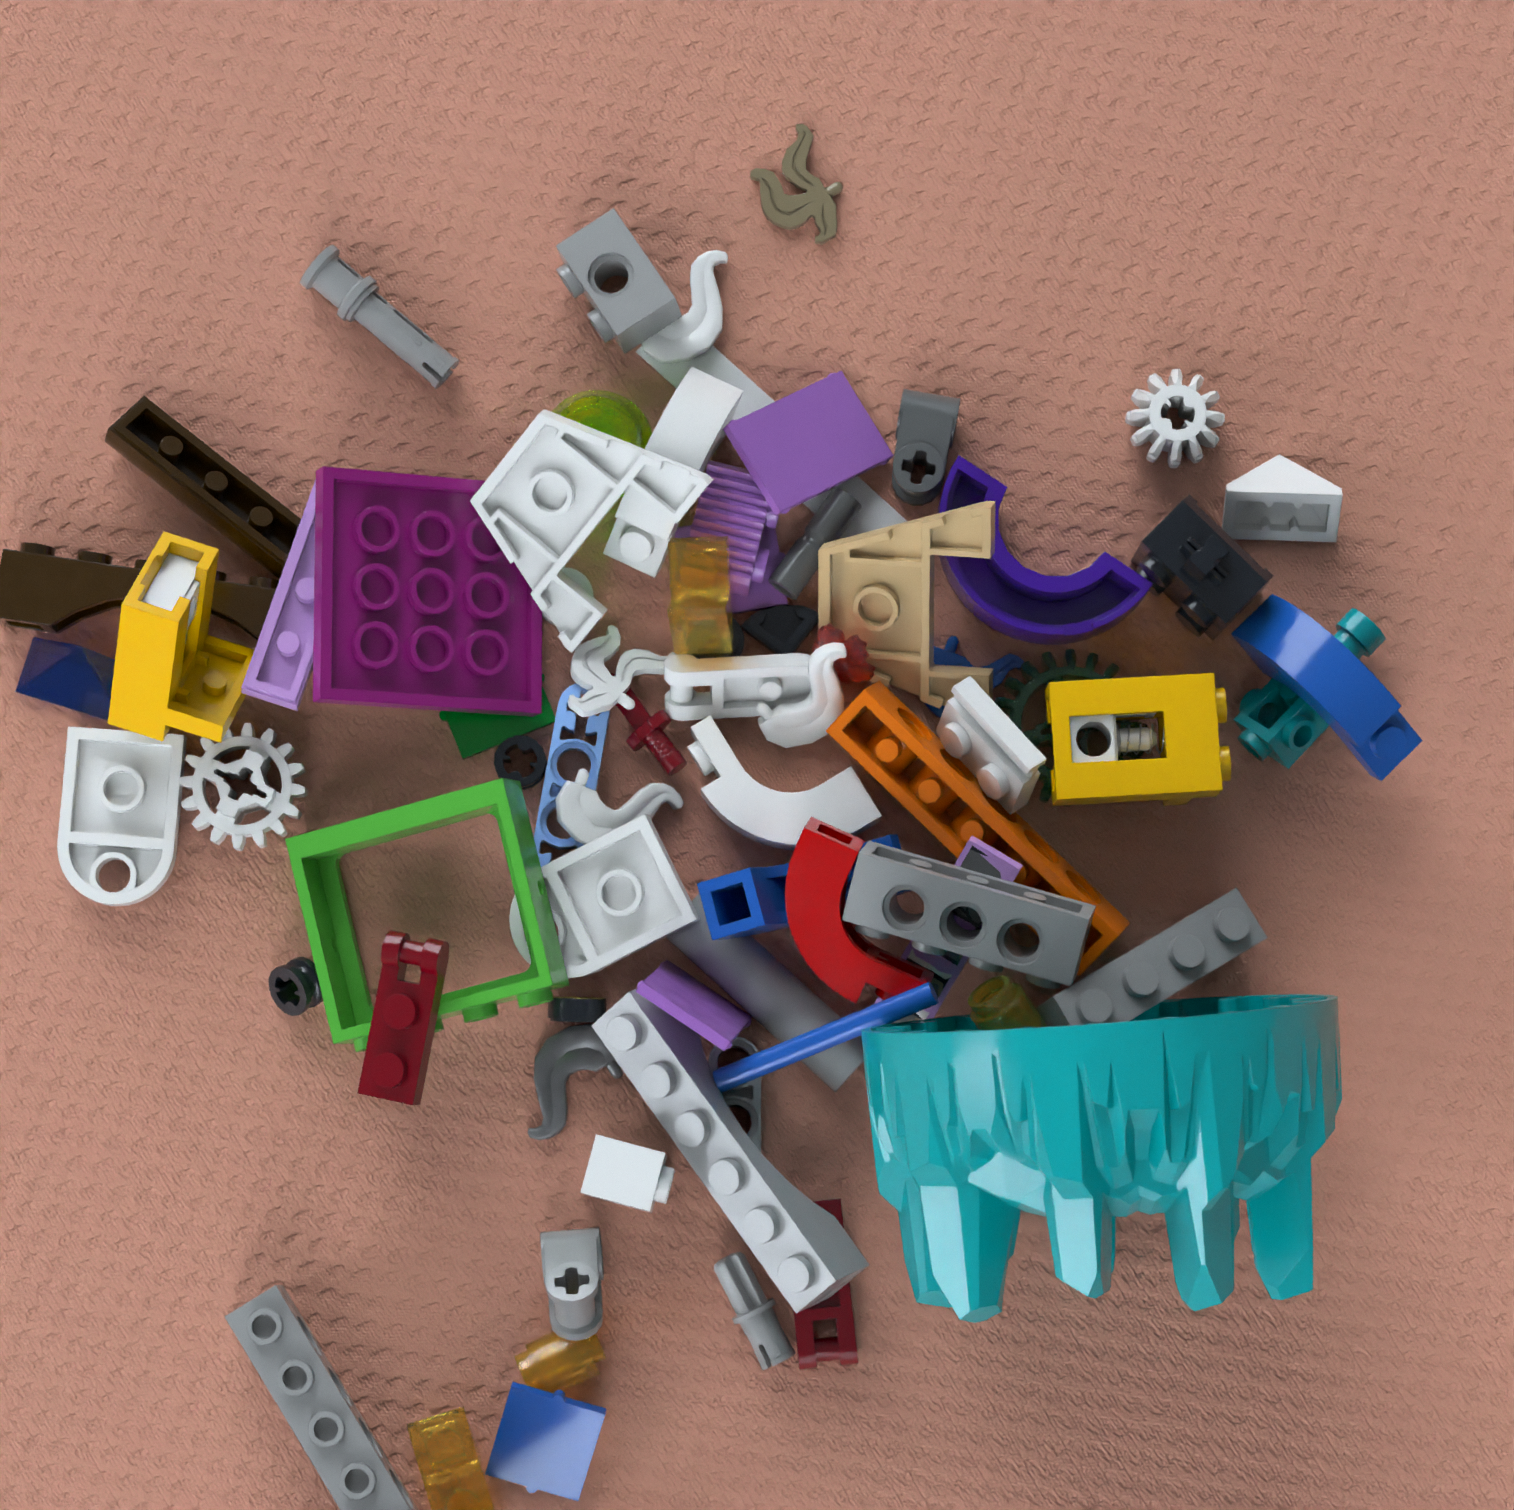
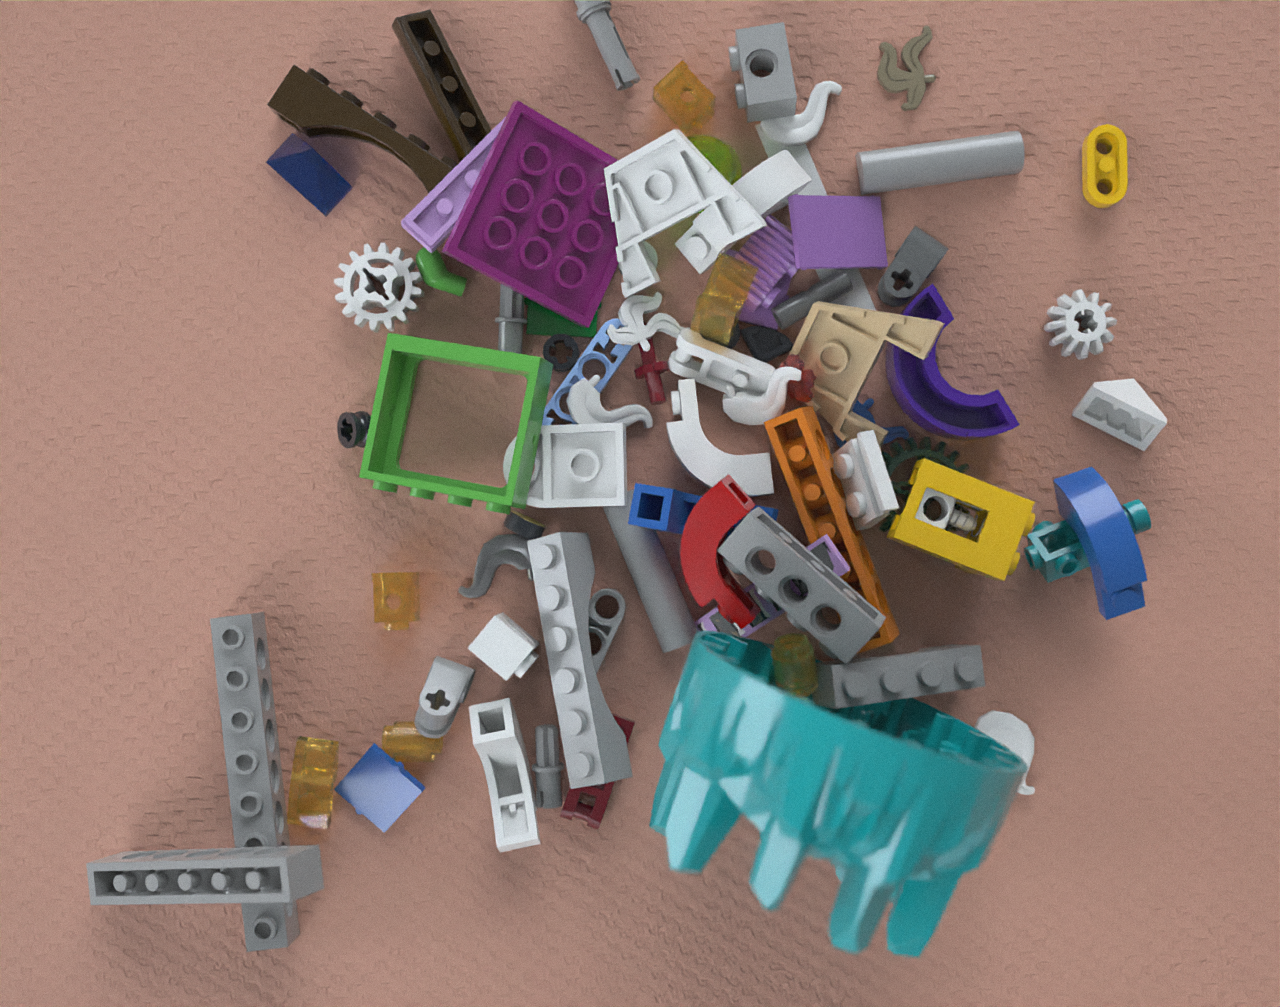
camera: 30 degrees right, 5 degrees up
(121, 806) = (297, 264): white plate -> none
(165, 659) = (363, 174): yellow brick -> none
(309, 734) = (436, 274): none -> bright green arm
(403, 1019) = (407, 483): dark red plate -> none
(435, 750) = (510, 320): none -> light grey axle
(446, 1159) = (407, 588): none -> clear yellow brick
(541, 381) = (684, 114): none -> clear yellow brick
(694, 1004) = (597, 559): medium lavender piece -> none
(702, 1340) = (507, 773): none -> white arch
(824, 1037) = (672, 620): blue bar -> none
(897, 292) = (940, 162): none -> light grey brick
(1112, 203) = (1104, 168): none -> yellow plate
(1199, 569) = (1053, 430): black hinge -> none
(1354, 996) = (1013, 734): none -> white piece

